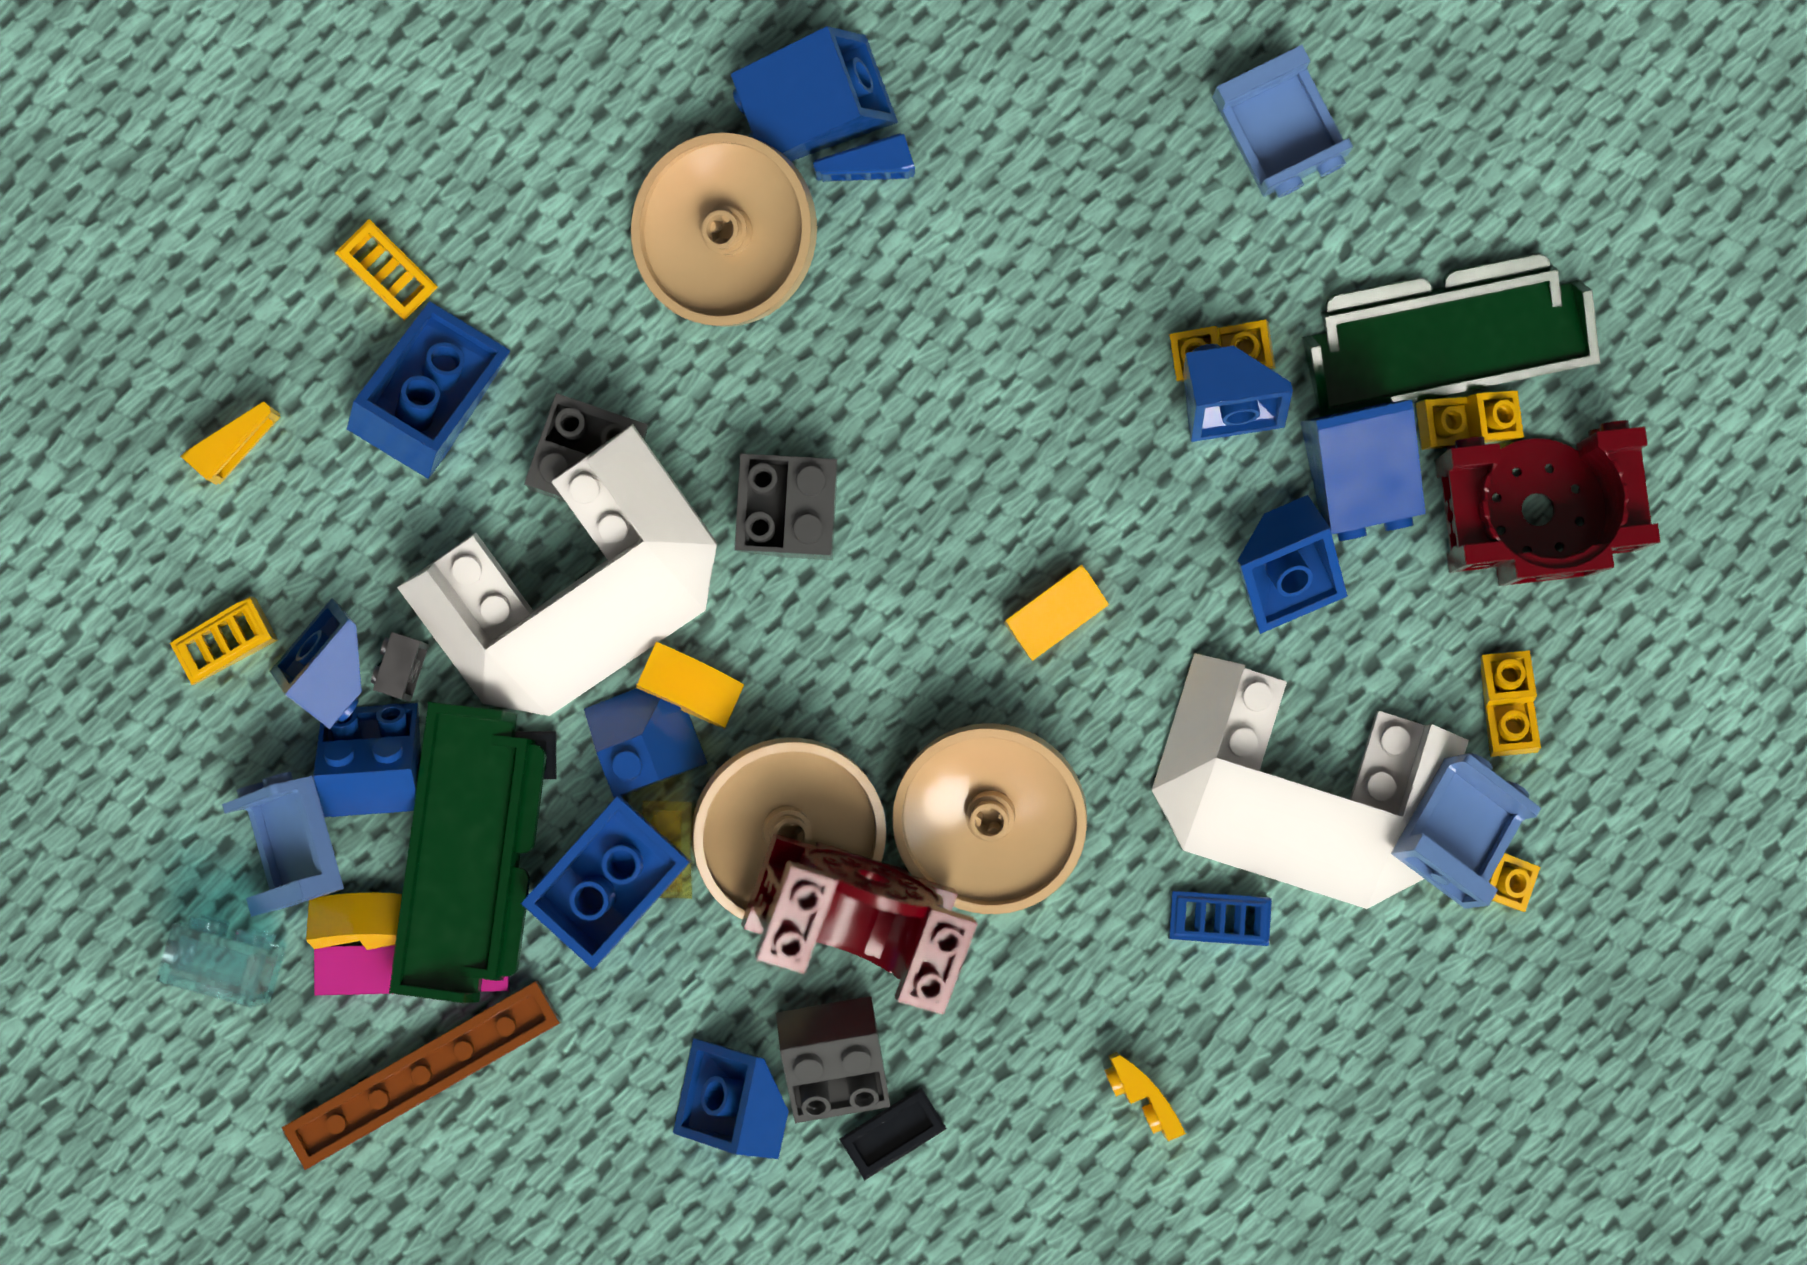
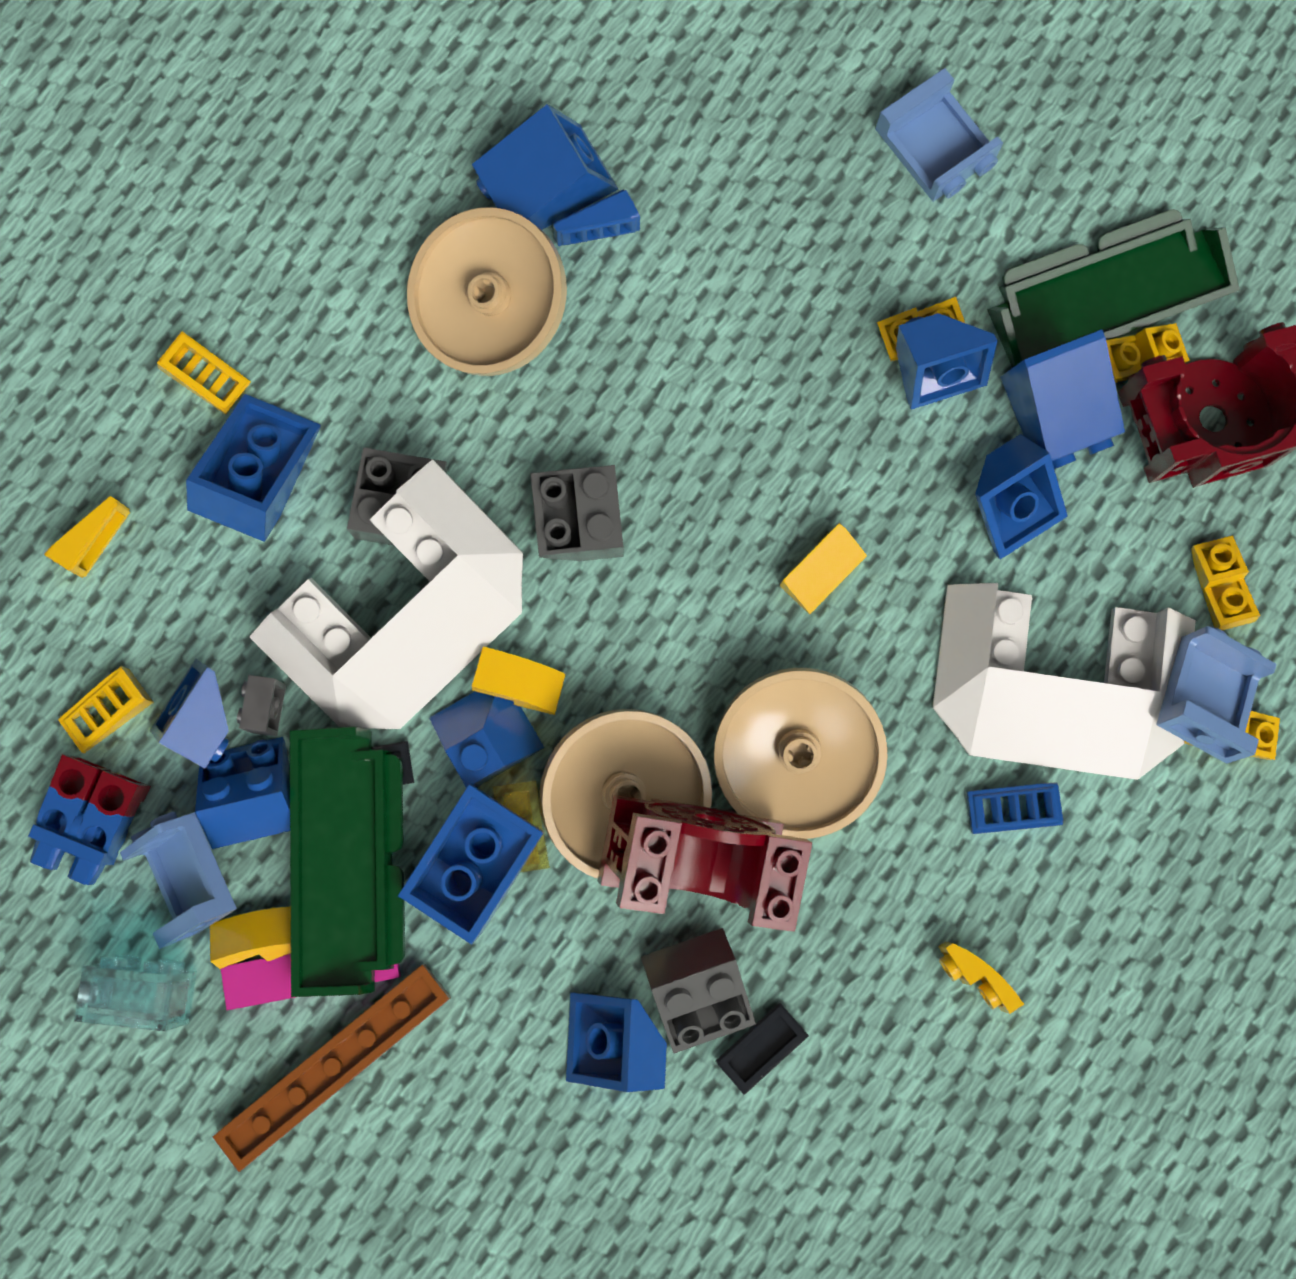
camera: 10 degrees left, 5 degrees down
(188, 758) = (85, 816): none -> blue hips

